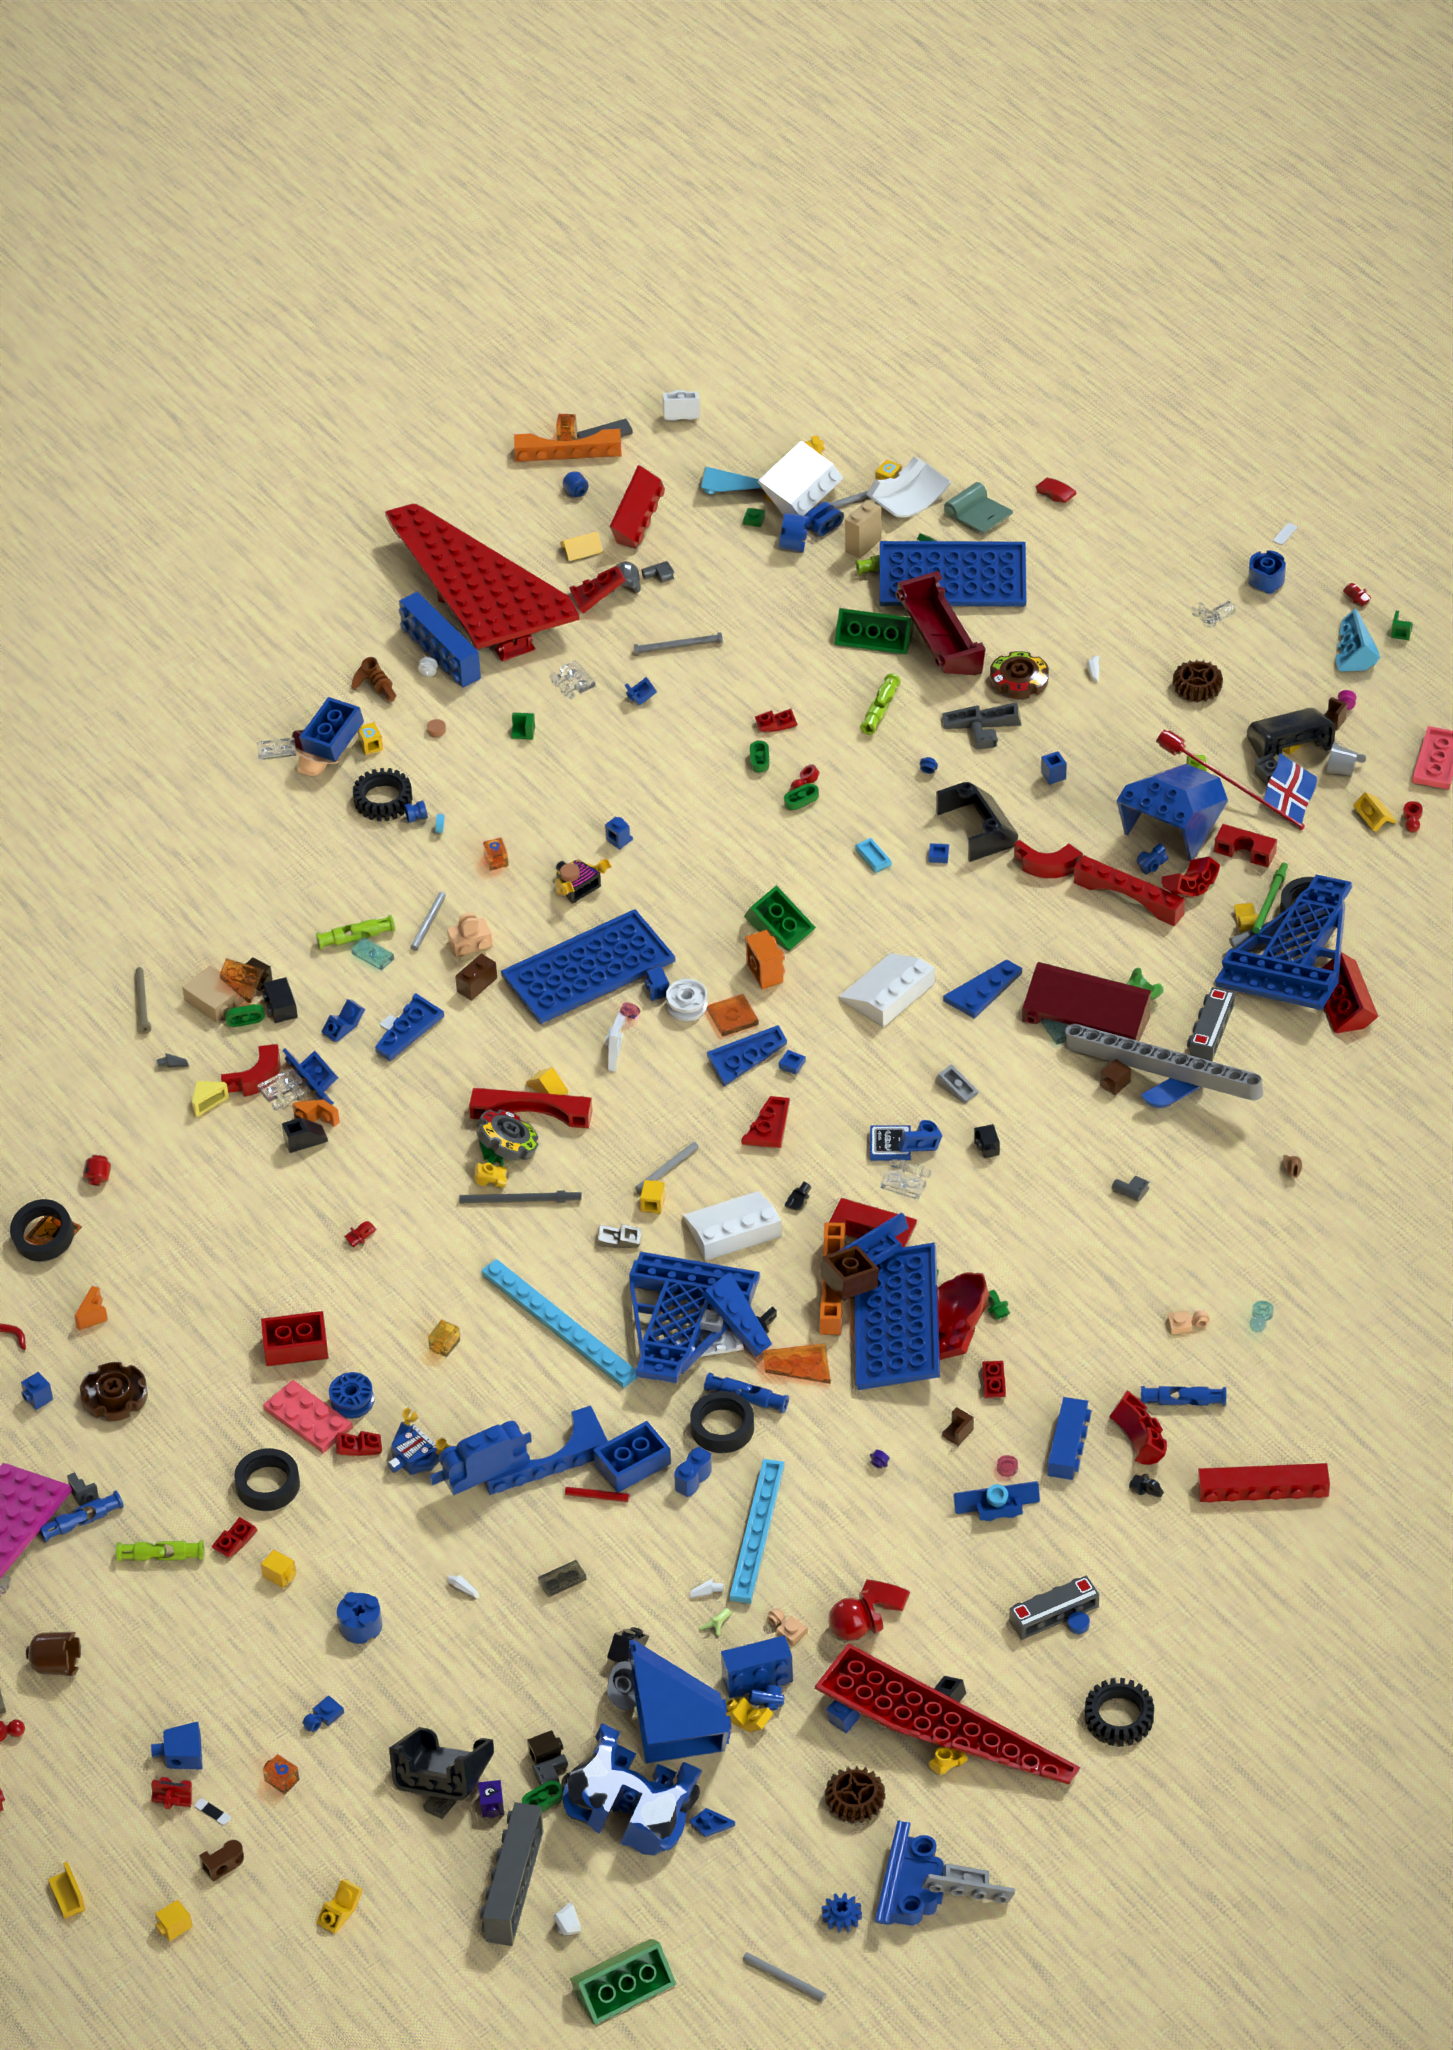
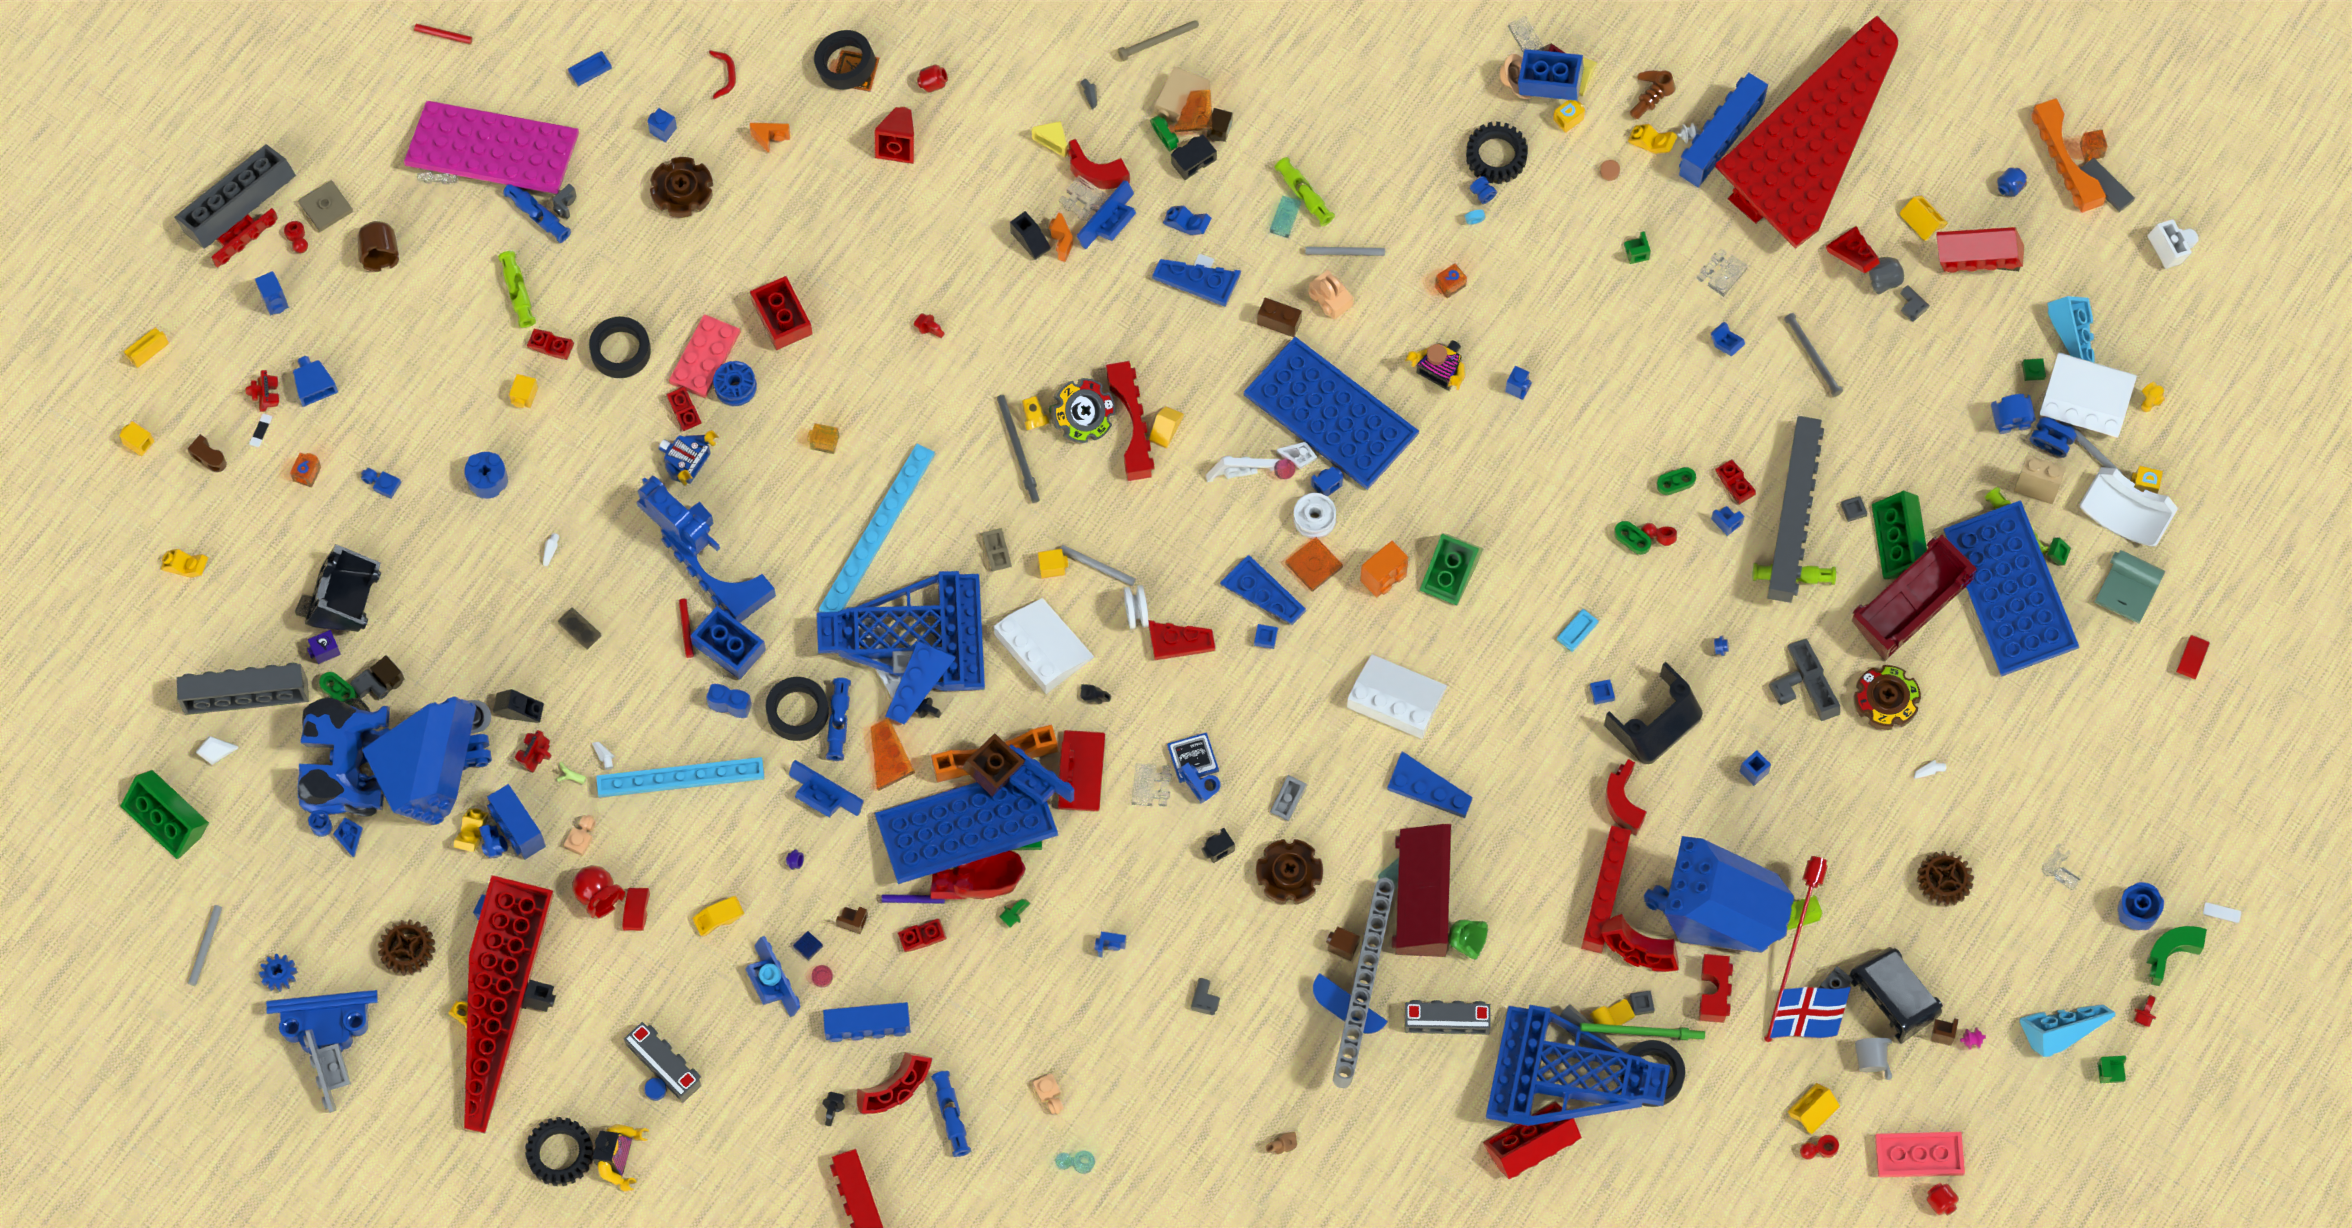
camera: 70 degrees right, 20 degrees up
(66, 1756) = (271, 293): none -> blue brick
(148, 1207) = (896, 136): none -> red slope
(425, 691) = (1649, 139): none -> yellow slope
(617, 998) = (1299, 454): none -> white piece
(687, 1648) = (535, 752): none -> red hips
(689, 1842) = (317, 821): none -> blue wheel
(727, 1139) = (1136, 606): none -> white wheel
(812, 735) = (1727, 520): none -> blue panel
(817, 1420) = (822, 793): none -> blue bracket
(824, 682) = (1794, 509): none -> dark grey brick
(834, 655) = (1854, 508): none -> dark grey tile
(917, 1530) = (718, 914): none -> yellow slope
(953, 1379) = (893, 898): none -> dark purple bar
(971, 1470) = (808, 945): none -> clear blue tile
(1031, 1098) = (1293, 857): none -> reddish brown piece
(1053, 1240) = (1110, 940): none -> blue bracket
(1139, 1663) = (612, 1153): none -> torso
(1240, 896) = (1642, 1002): none -> dark grey tile
(1309, 571) = (2180, 939): none -> green arch

